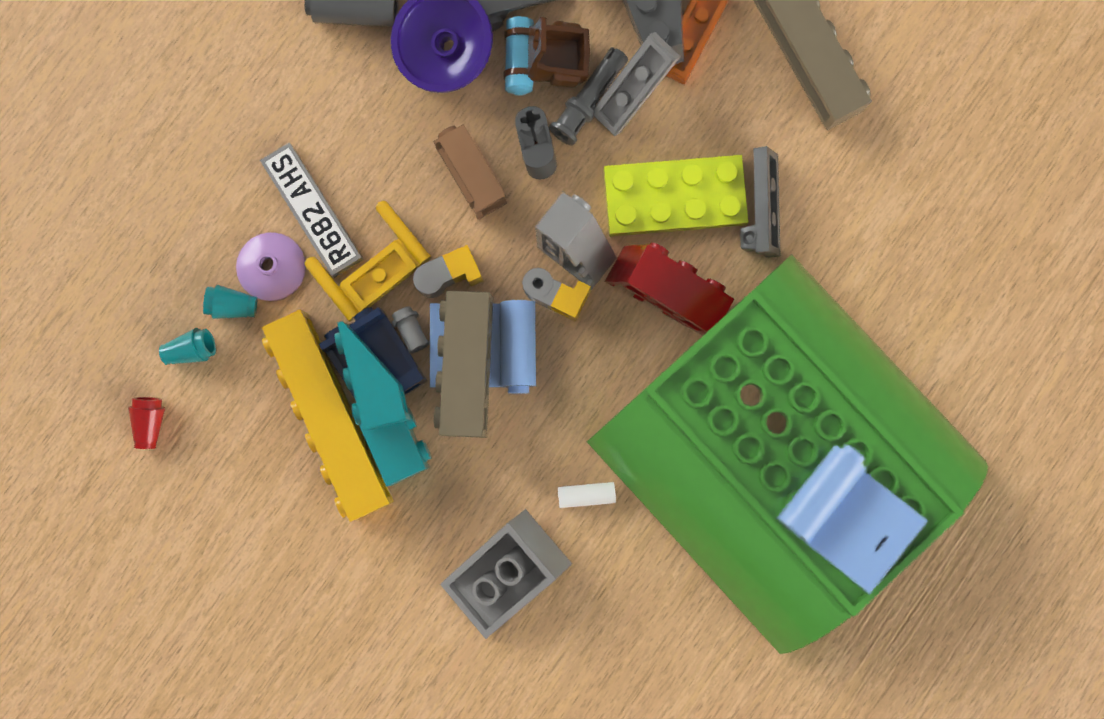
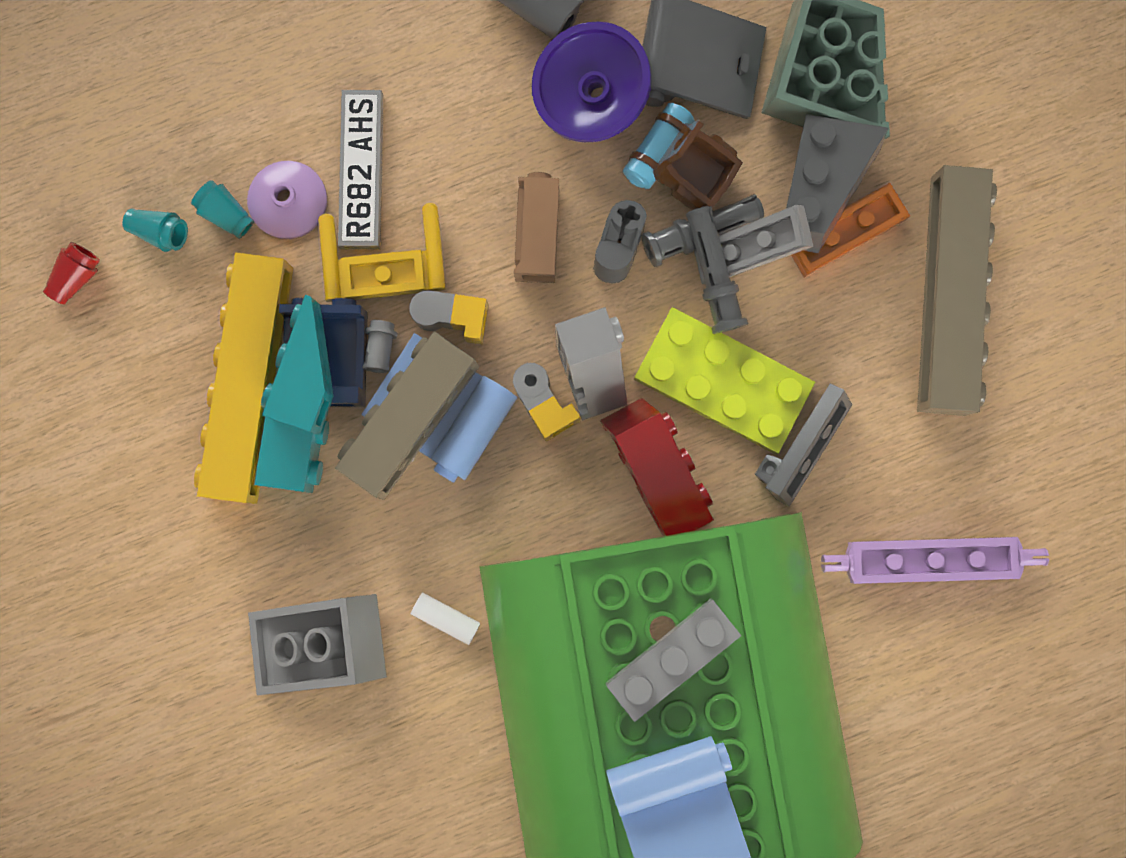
camera: 30 degrees right, 0 degrees up
(632, 131) = (719, 289): none -> dark grey pin
(772, 410) = (672, 659): none -> light grey plate
(907, 227) = (934, 560): none -> lavender plate

